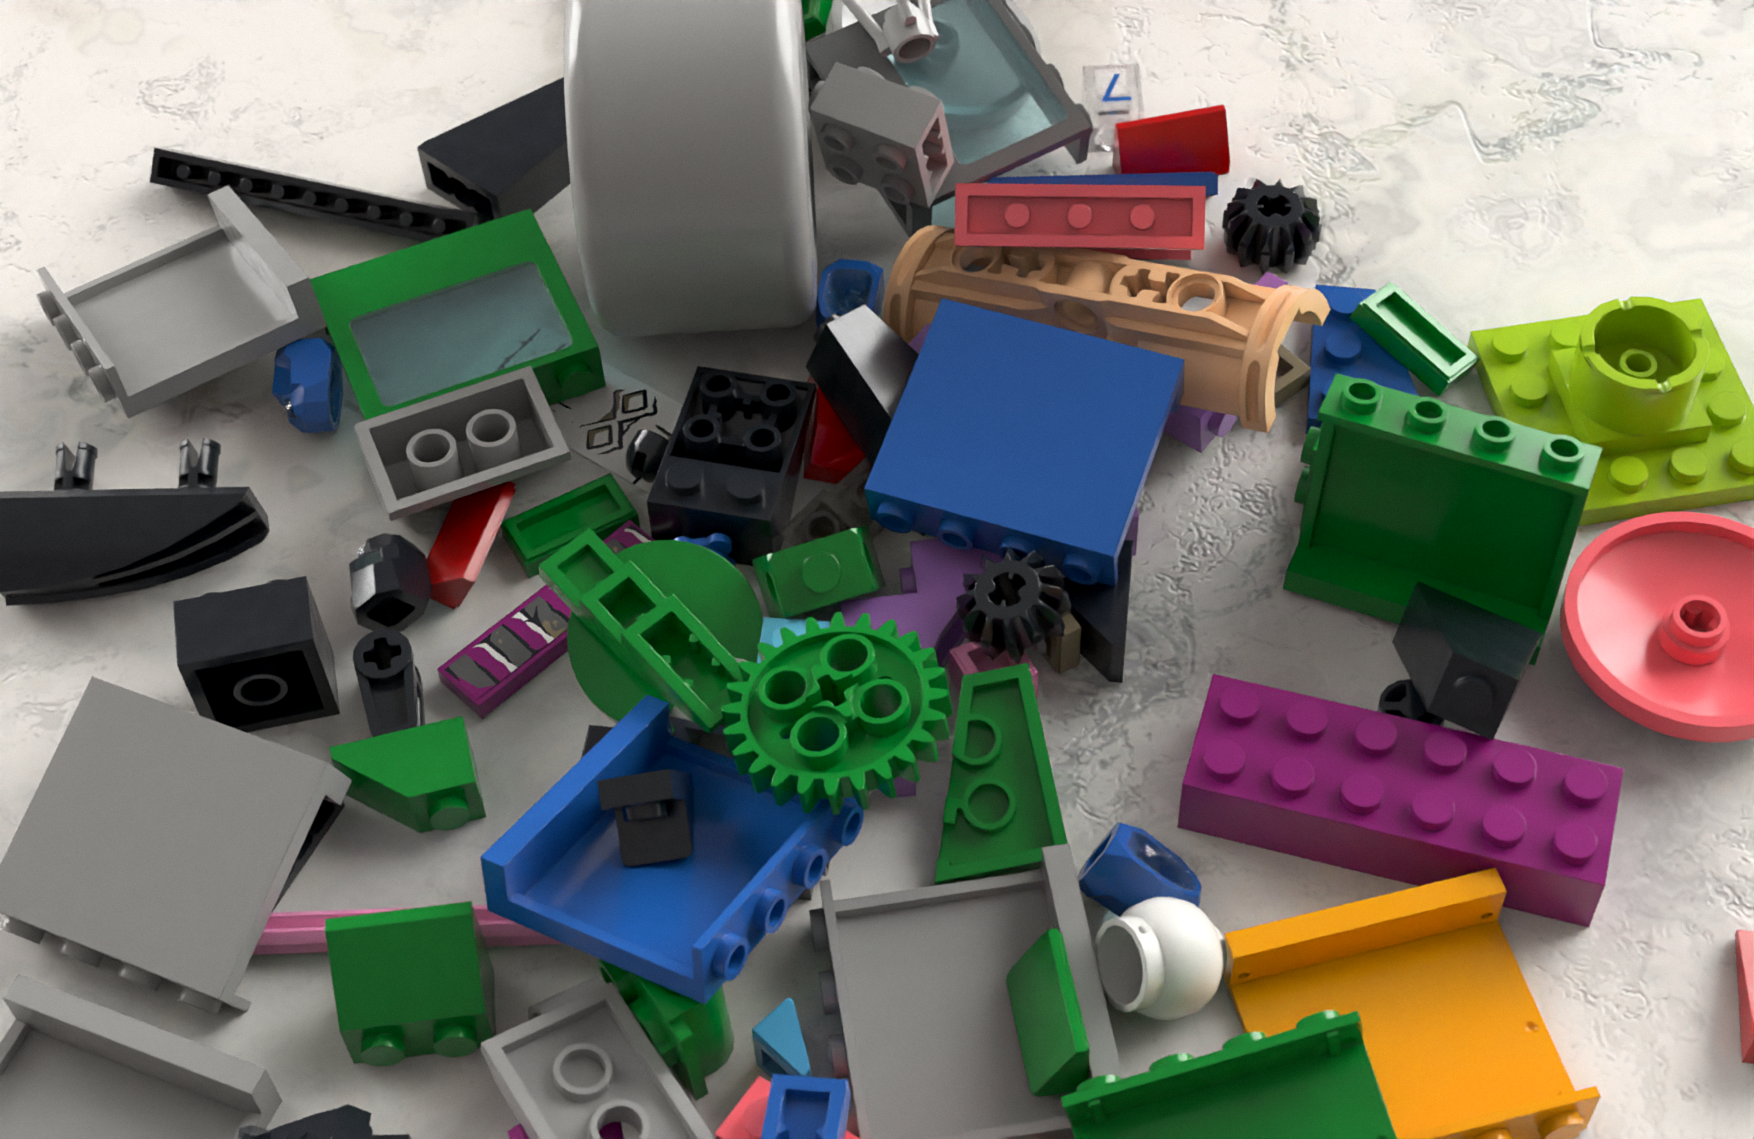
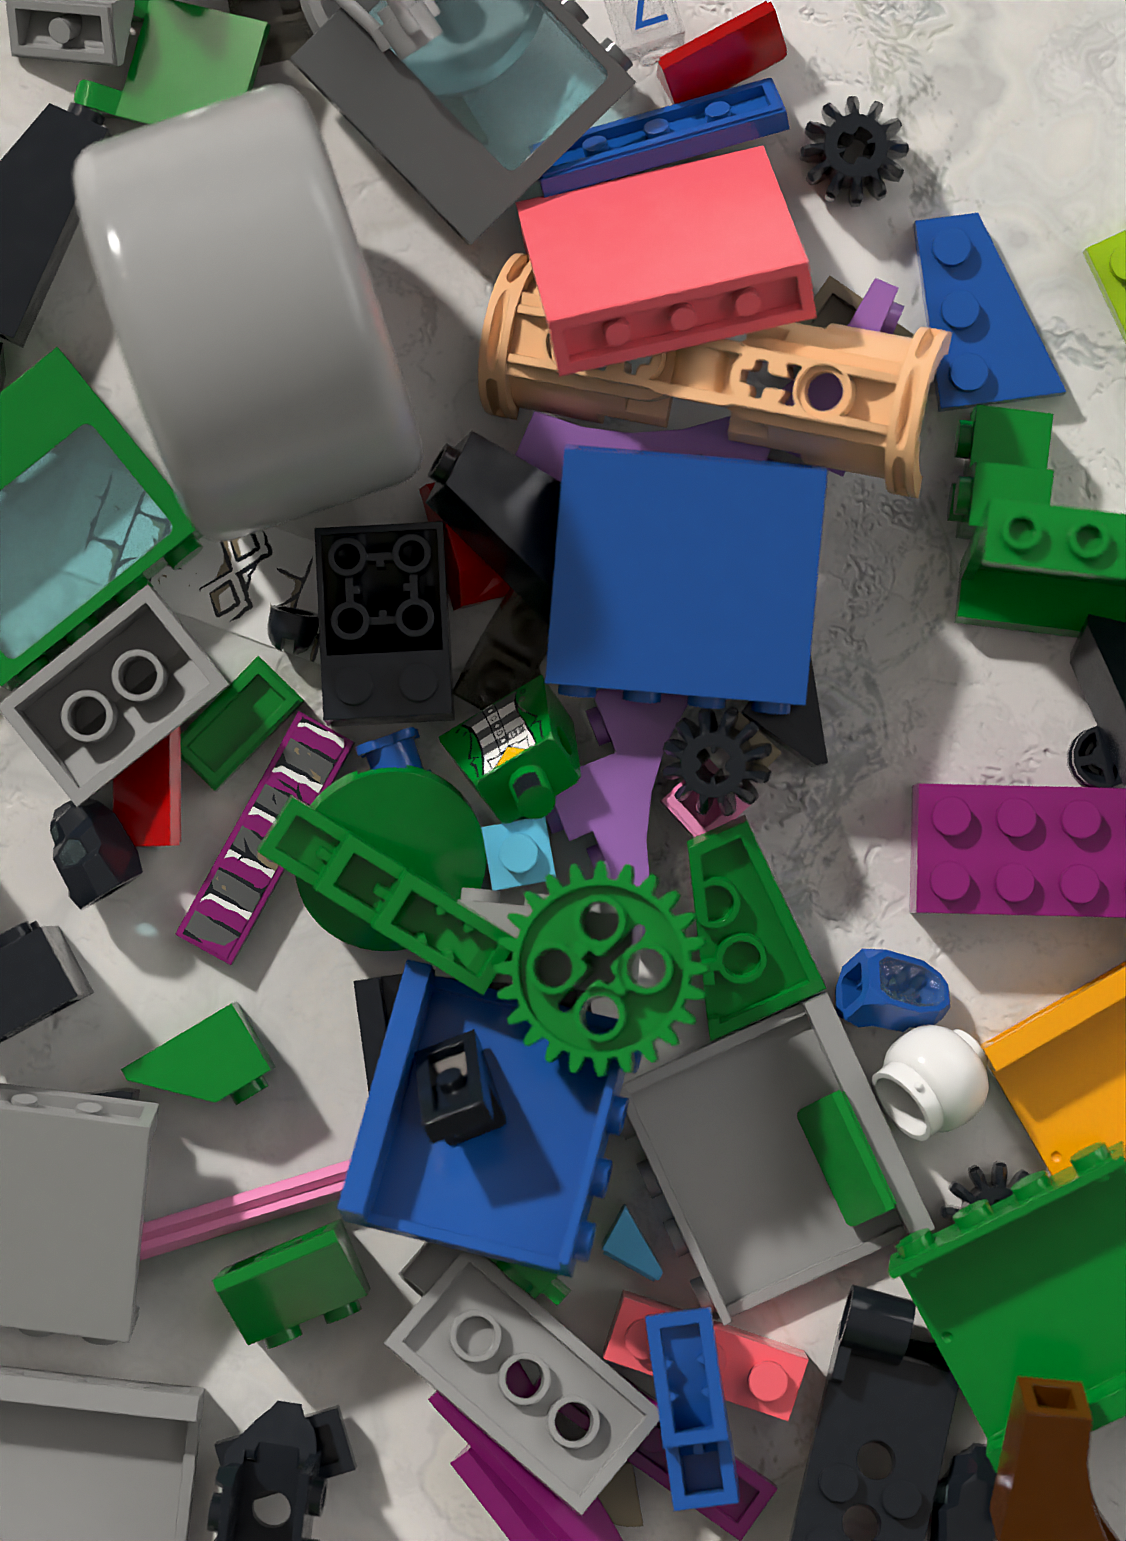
camera: 15 degrees left, 35 degrees up
(389, 682) = (153, 990): black piece -> none
(848, 286) = (437, 382): rock -> none
(881, 134) = (425, 202): light grey brick -> none
(1414, 338) = (1031, 278): green tile -> none

